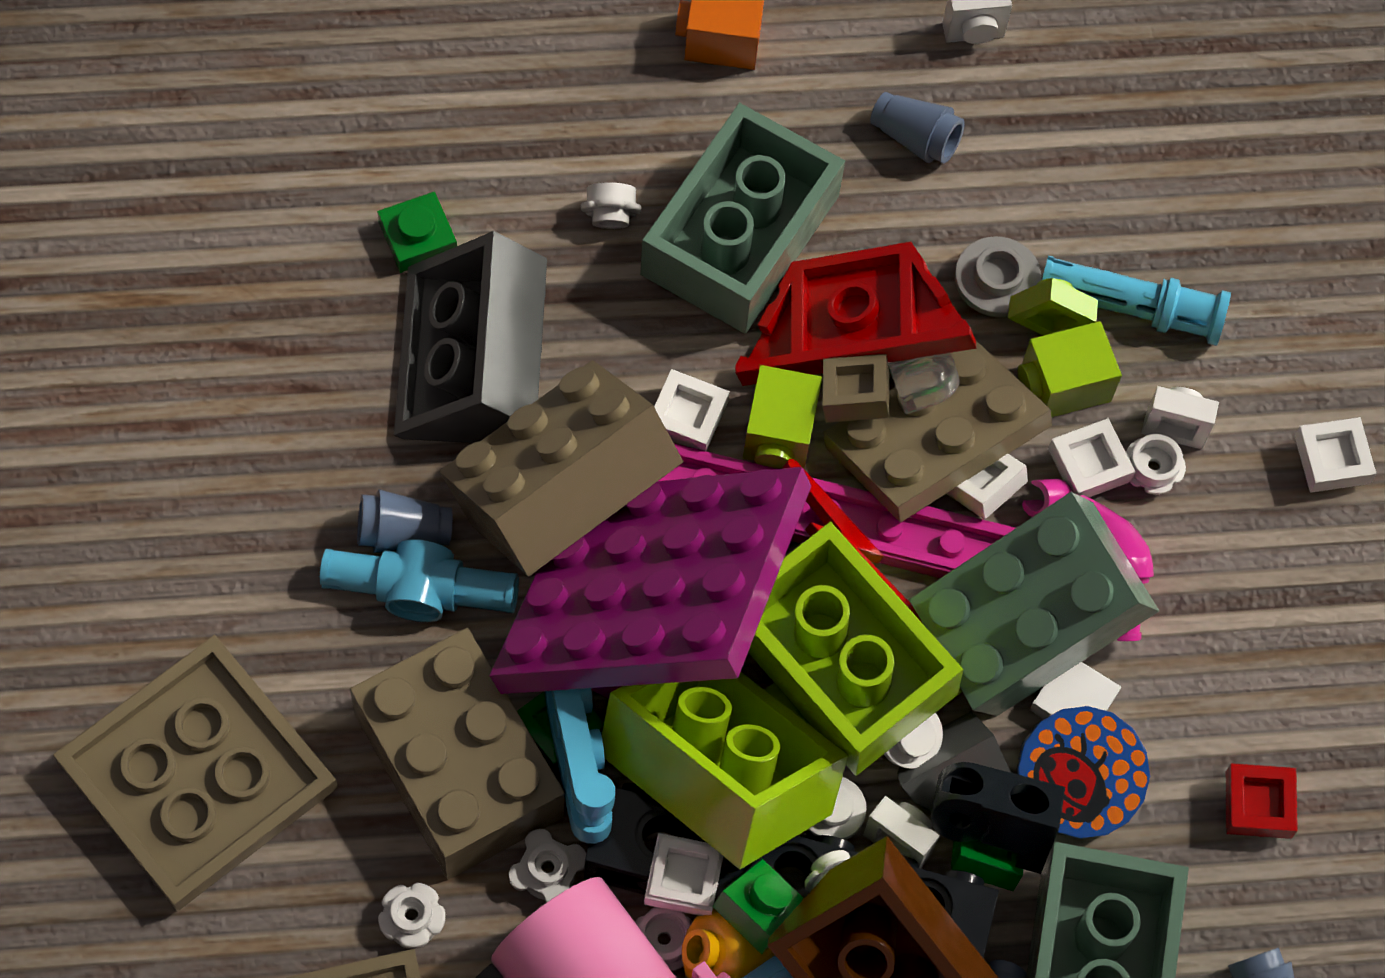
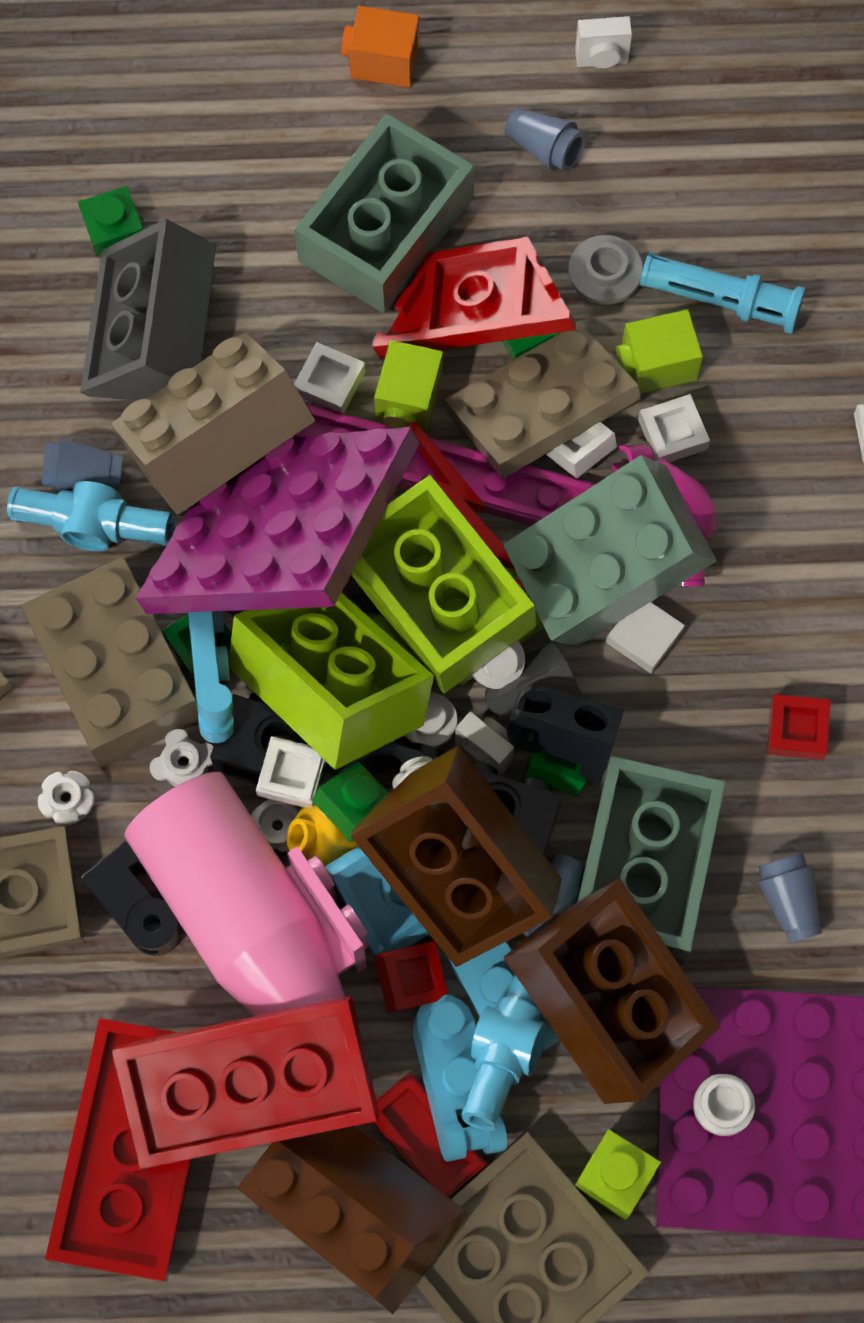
camera: 10 degrees right, 5 degrees up
(611, 204) = (276, 200): white plate -> none
(855, 388) = (471, 362): dark tan plate -> none
(924, 381) = (530, 357): clear tile -> none
(1052, 307) = (648, 296): lime plate -> none
(1097, 764) = (654, 689): tile -> none
(1164, 452) = (736, 423): white plate -> none
(1181, 416) = (753, 394): white plate -> none

